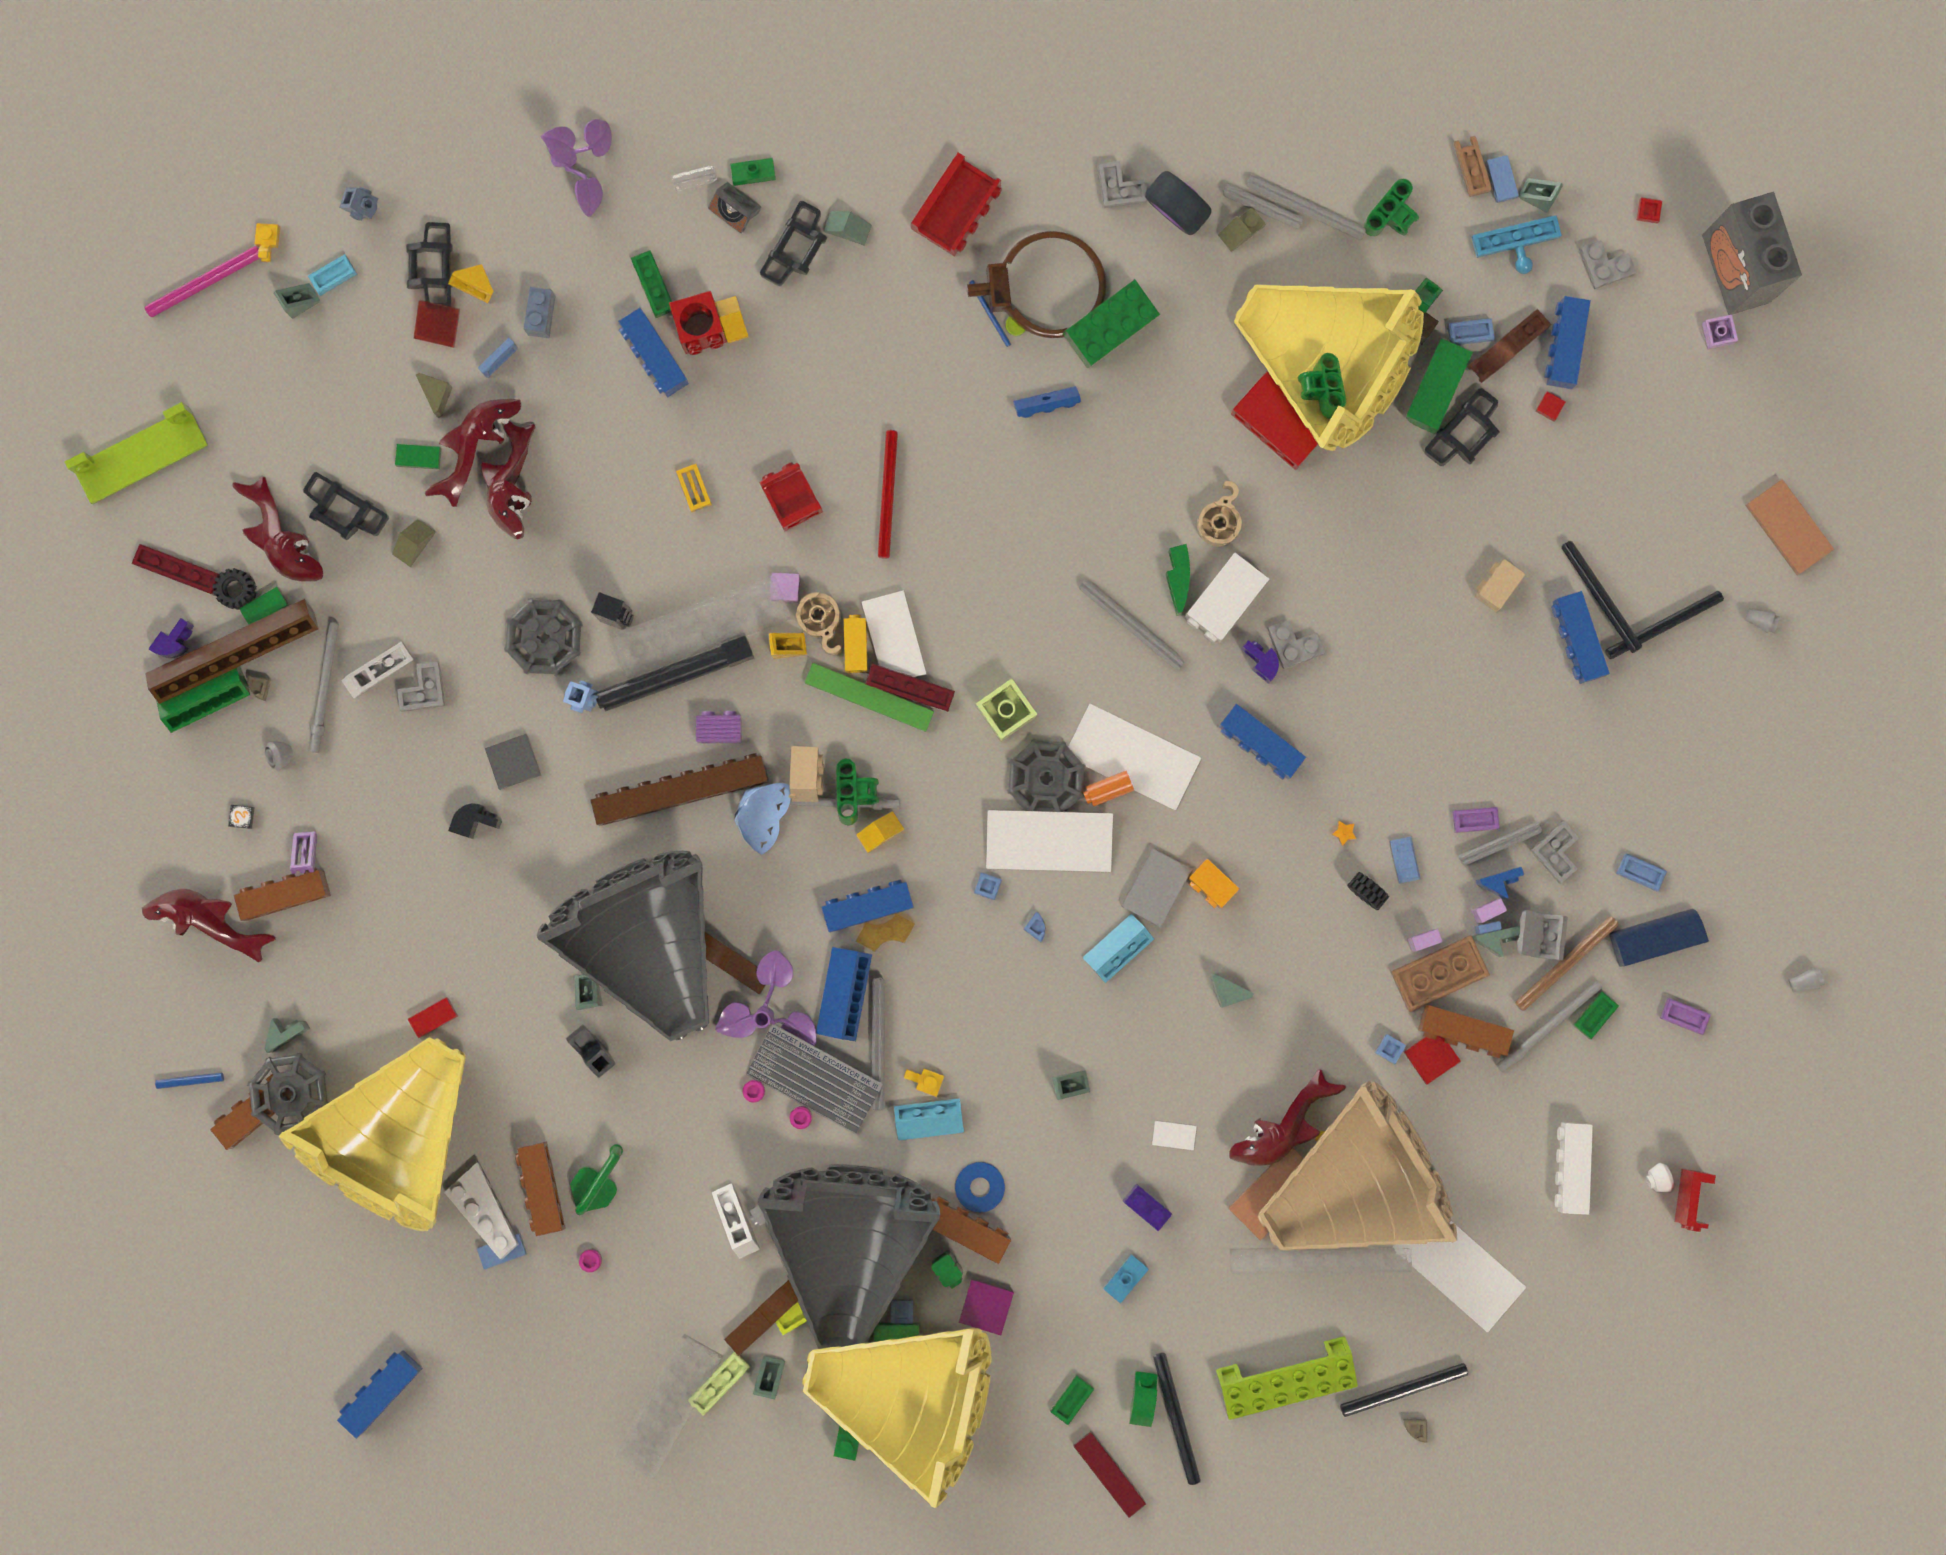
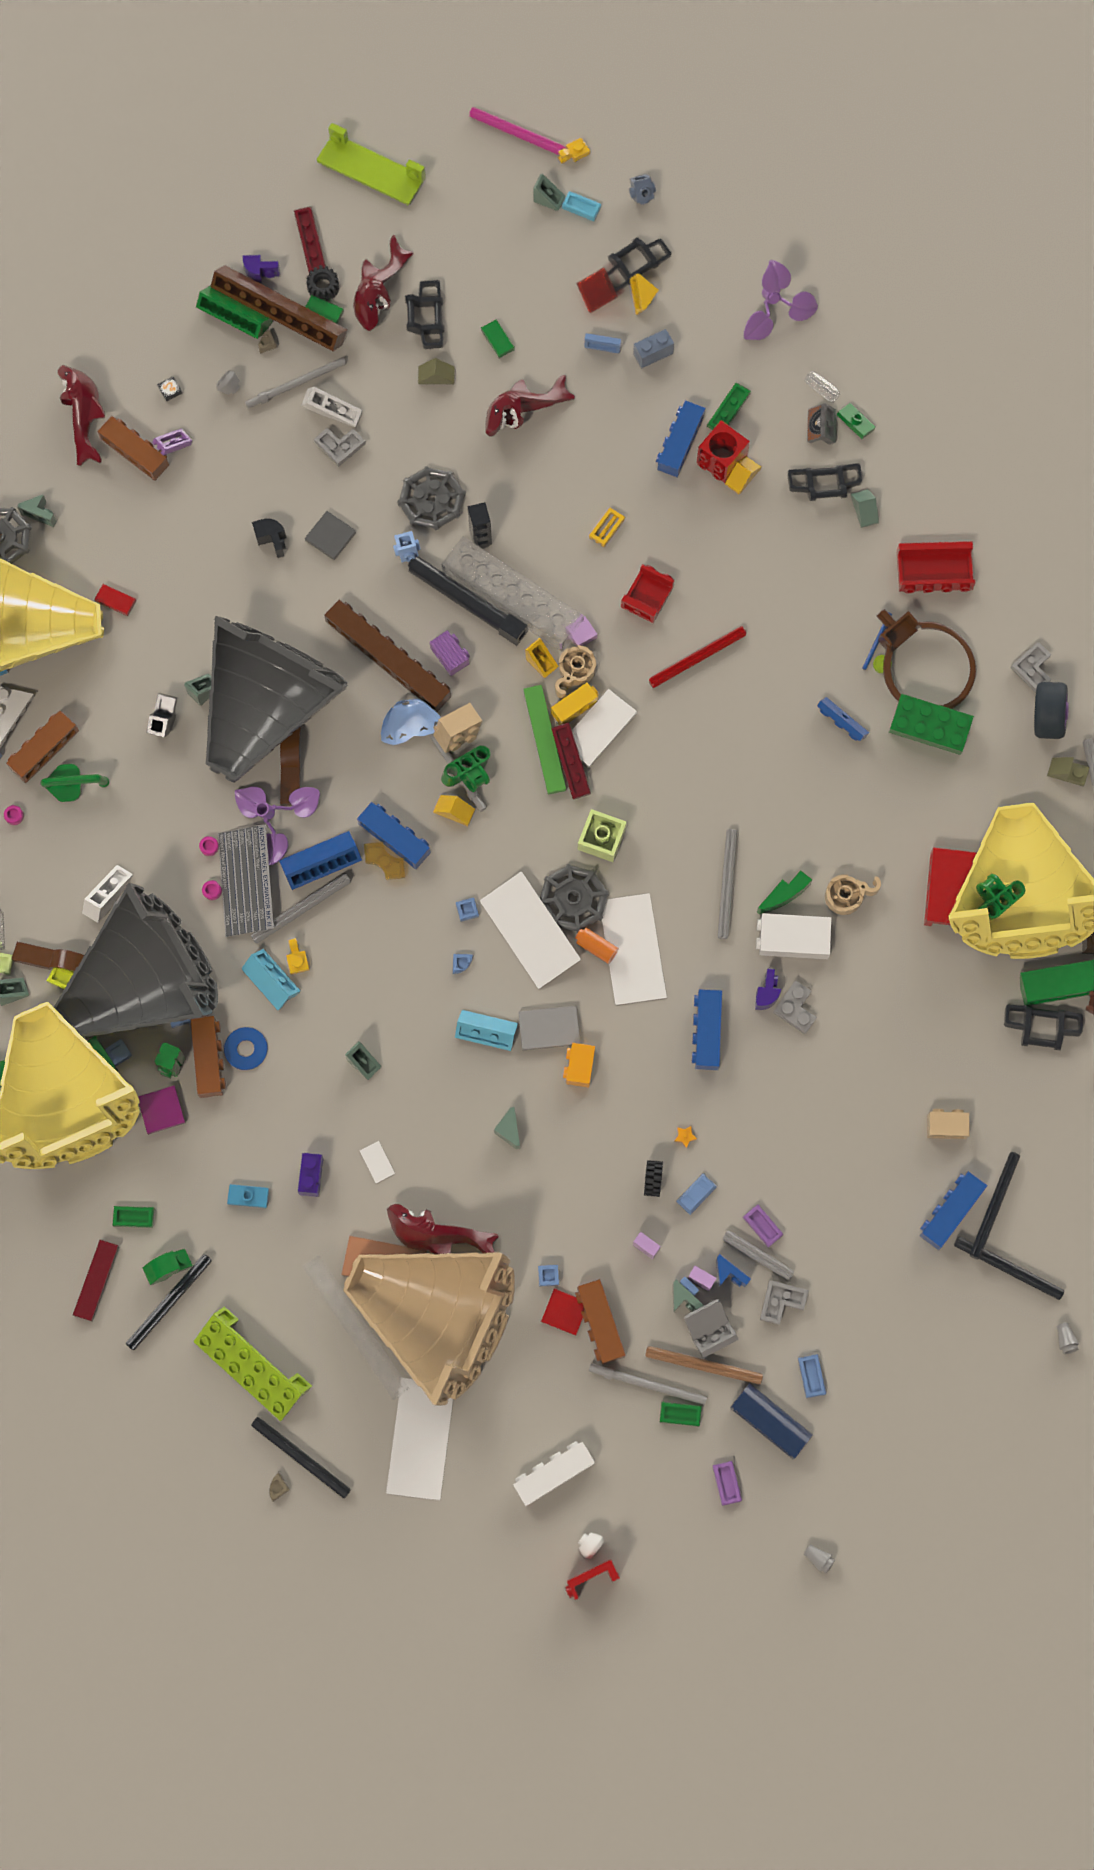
camera: 55 degrees right, 10 degrees down
(436, 392) = (549, 320): olive slope -> none
(464, 441) = (528, 356): dark red piece -> none
(1440, 973) = (630, 1275): medium nougat tile -> none

